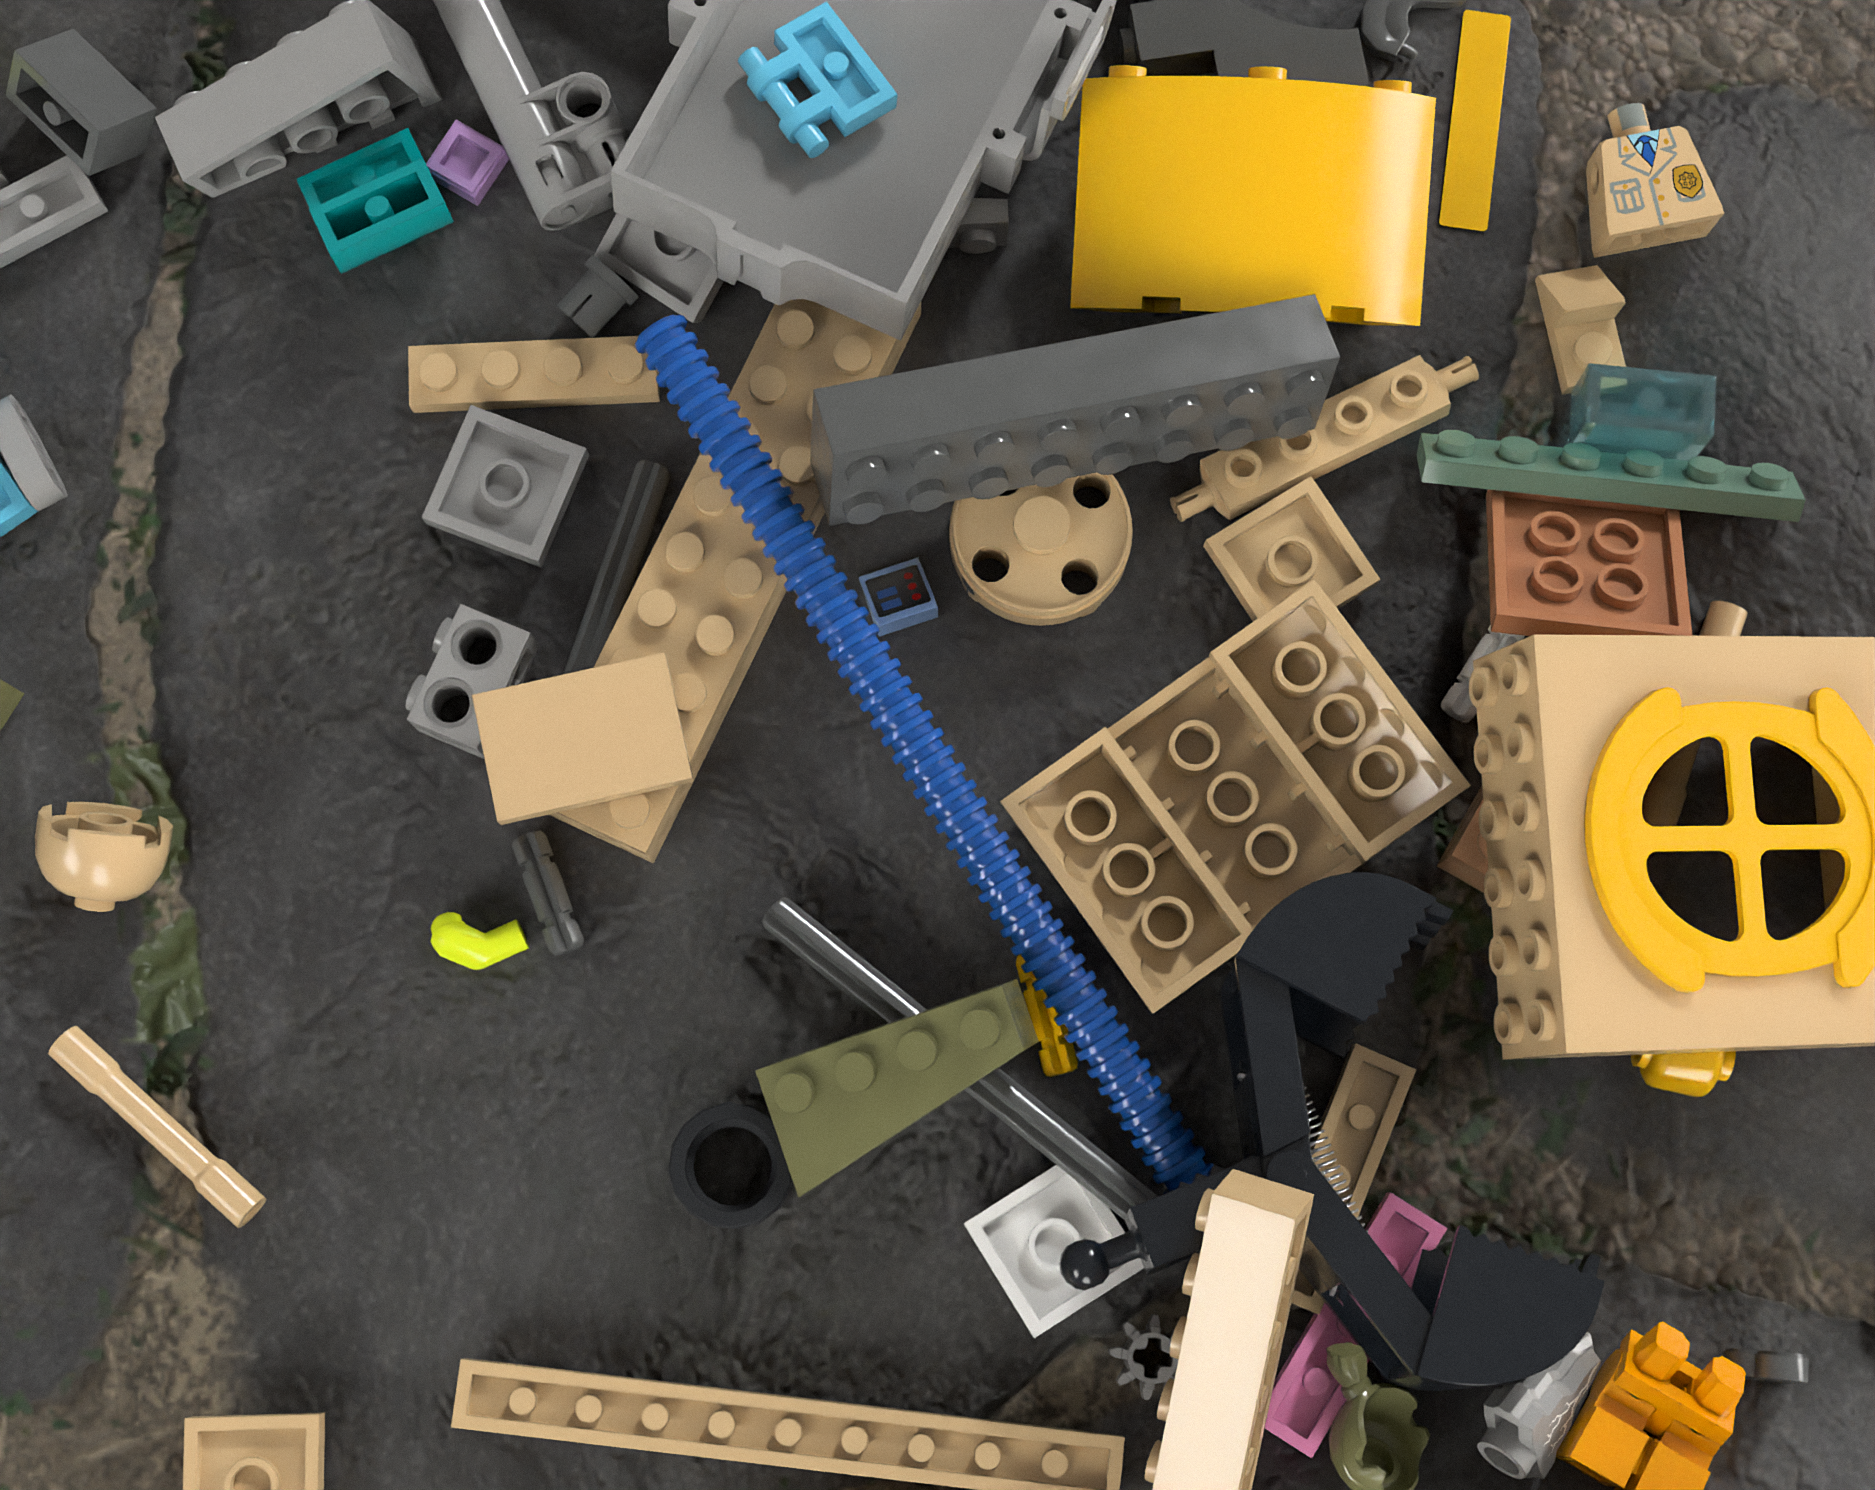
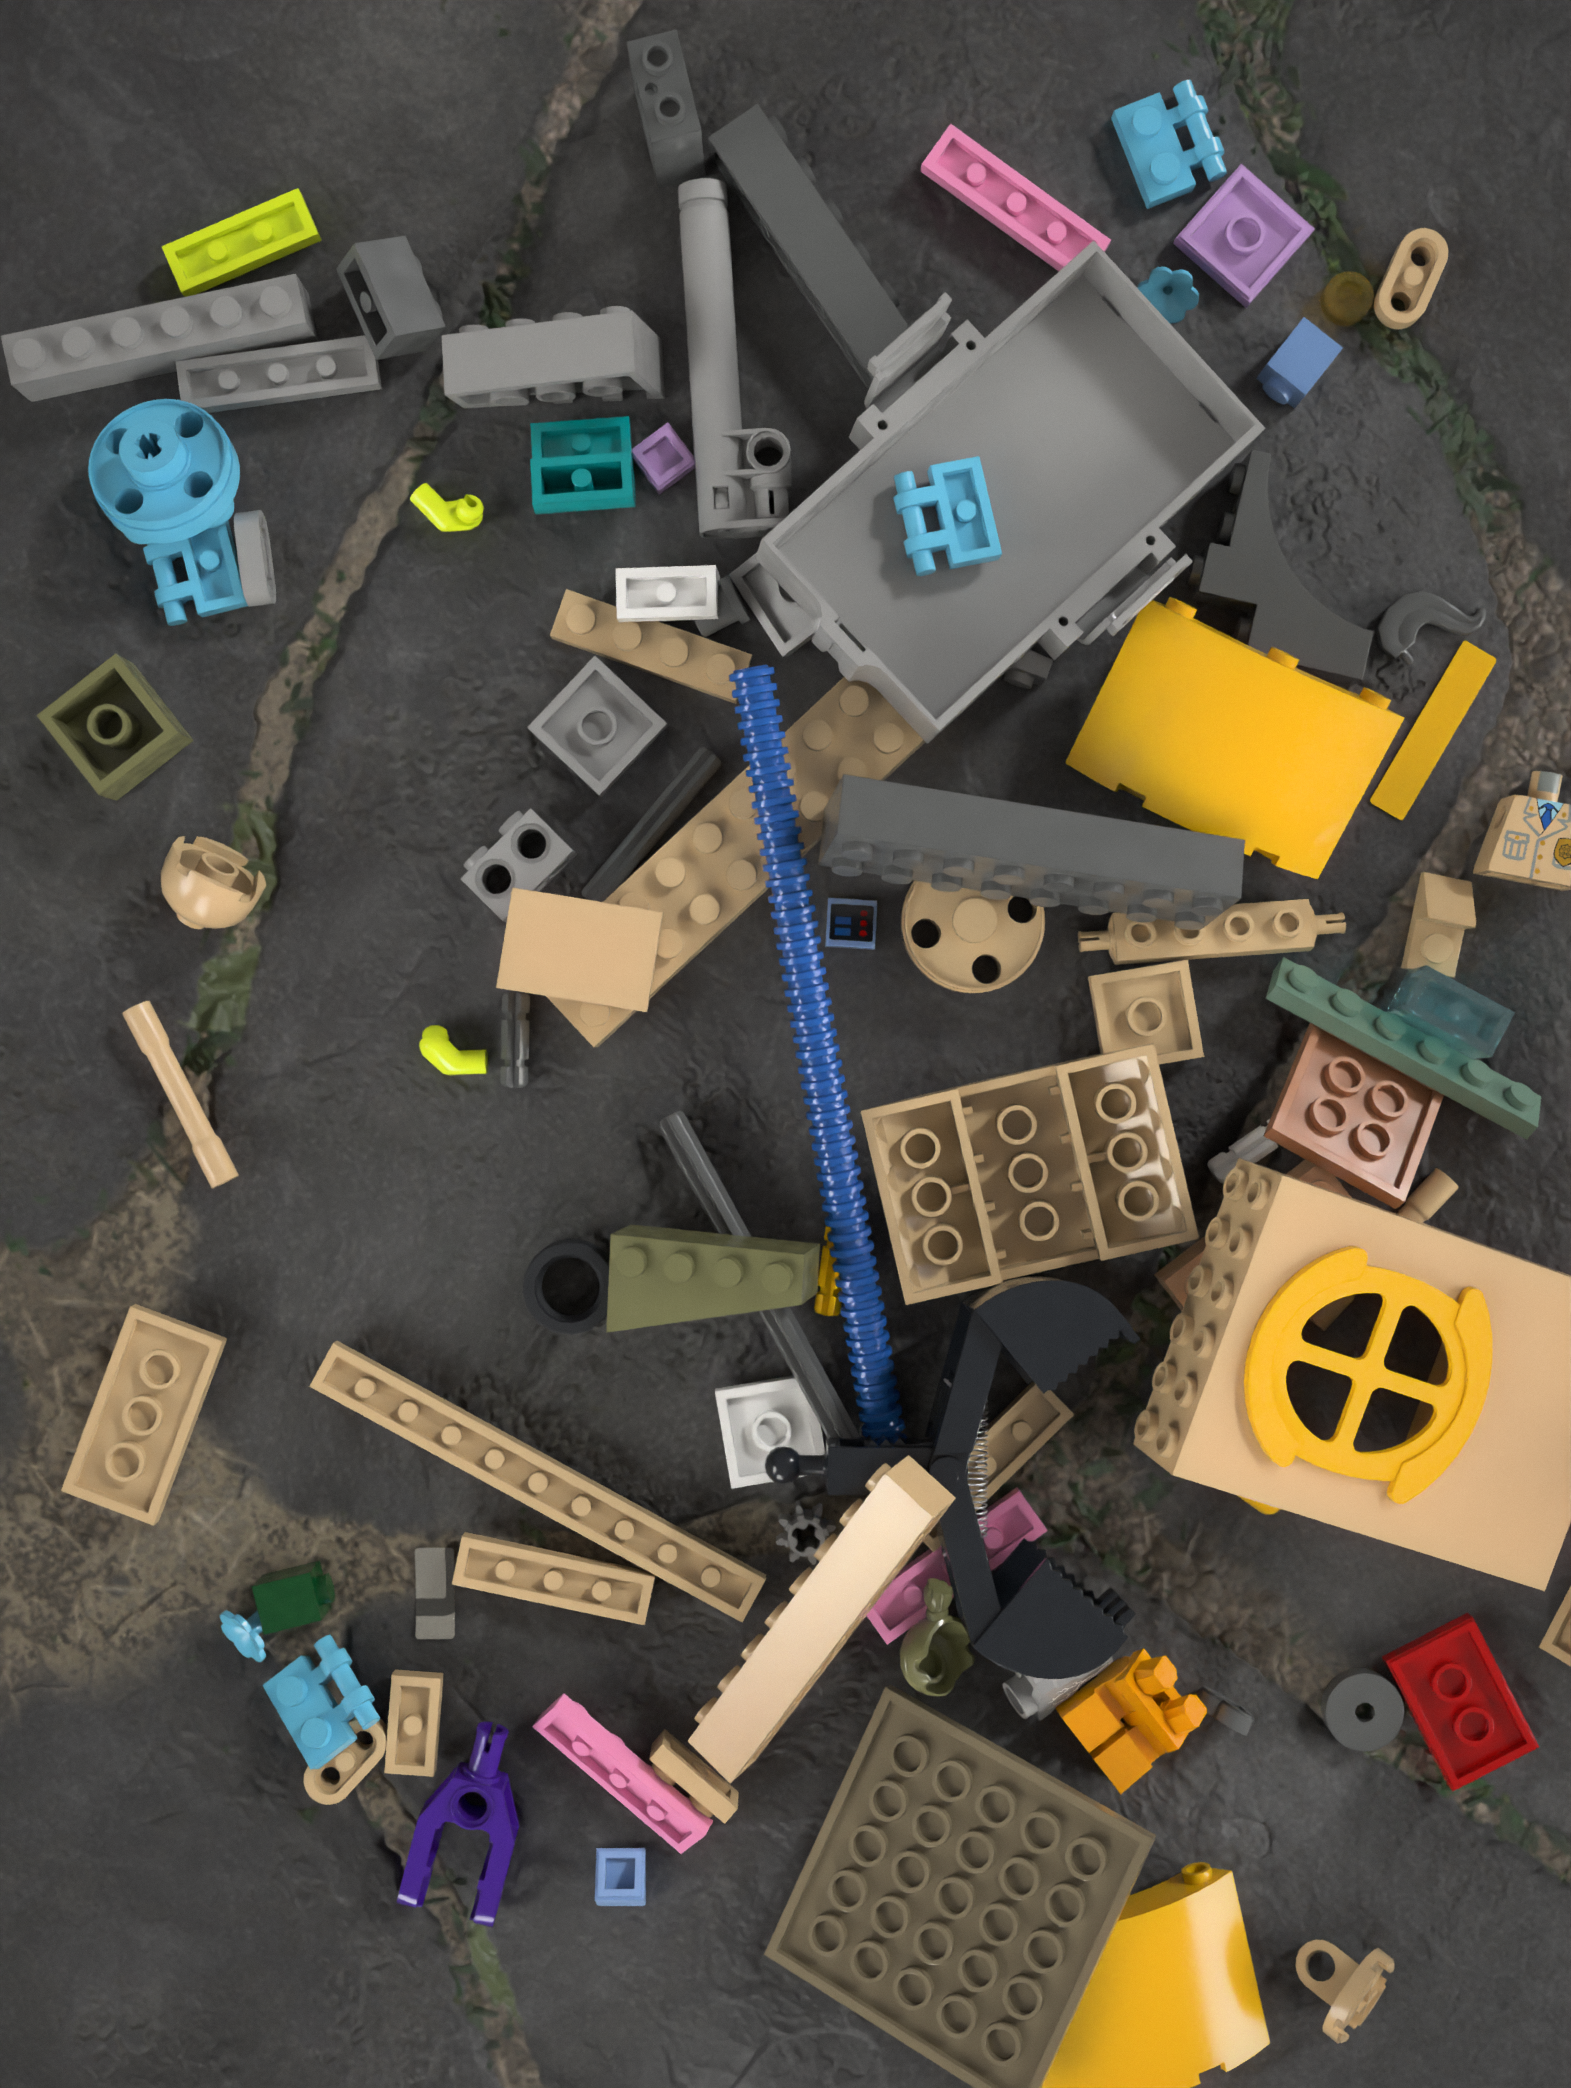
camera: 25 degrees right, 10 degrees up
(235, 321) = (449, 515): none -> neon yellow arm
(527, 298) = (667, 593): none -> white panel

